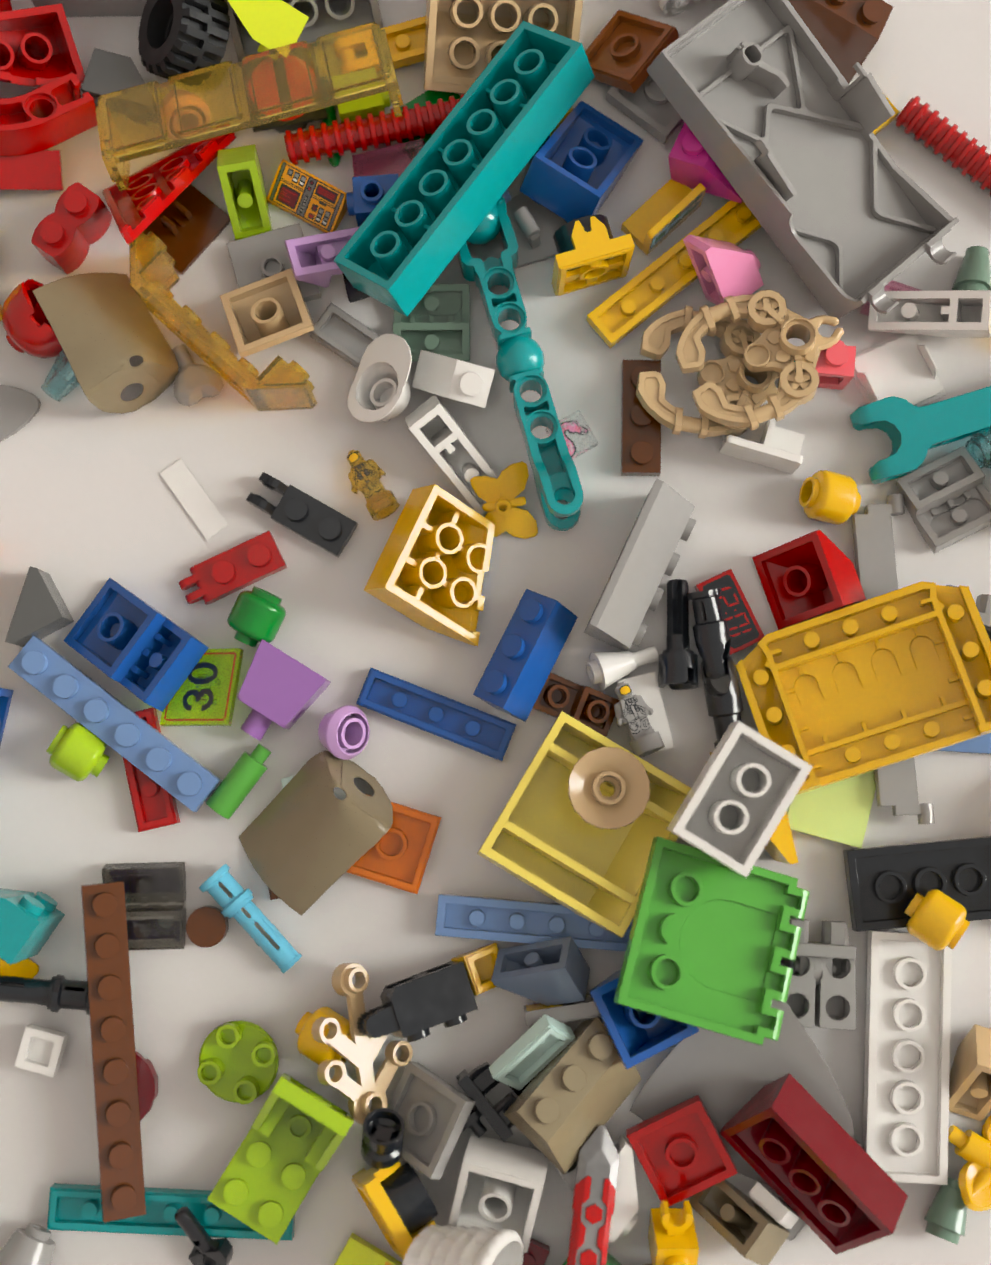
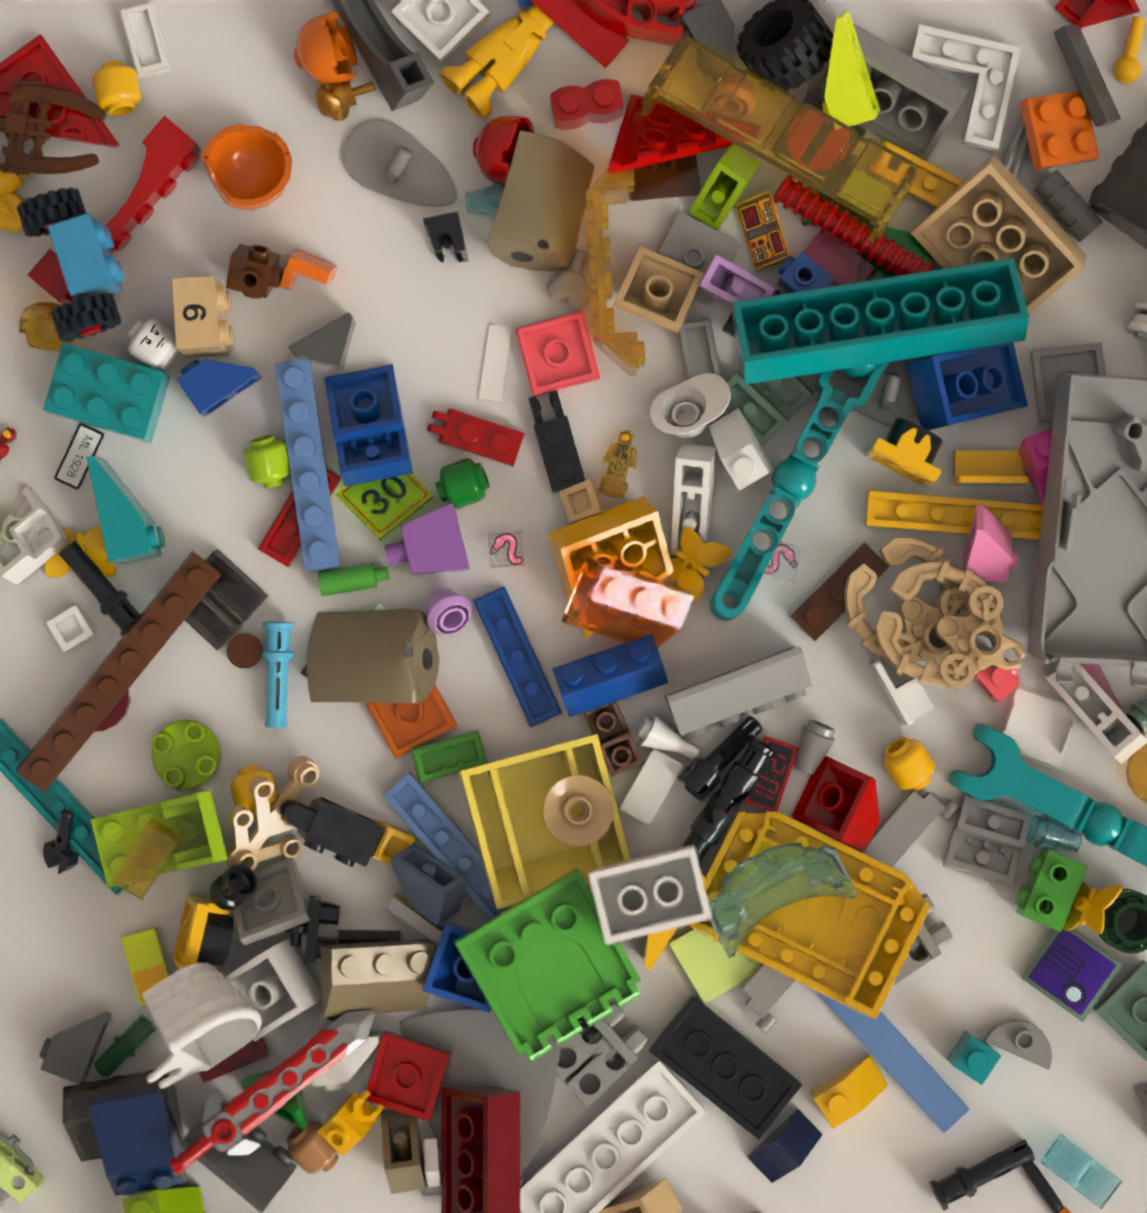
camera: 50 degrees right, 5 degrees up
(52, 429) = (444, 232): none -> black hinge
(236, 444) = (557, 353): none -> coral tile
(285, 1186) = (146, 858): none -> clear yellow slope
(344, 637) = (506, 549): none -> tile
(366, 539) = (581, 501): none -> tan plate
(457, 850) = (448, 756): none -> bright green plate
(481, 584) = (625, 603): none -> clear orange slope
(532, 1052) = (373, 925): light aqua tile -> none
(627, 49) = (1073, 335): dark orange tile -> none
(634, 712) = (642, 779): light grey piece -> none
(741, 555) = (814, 745): none -> light grey cone
(821, 689) = (772, 881): none -> clear light blue windscreen
(936, 919) = (704, 1090): yellow head -> none

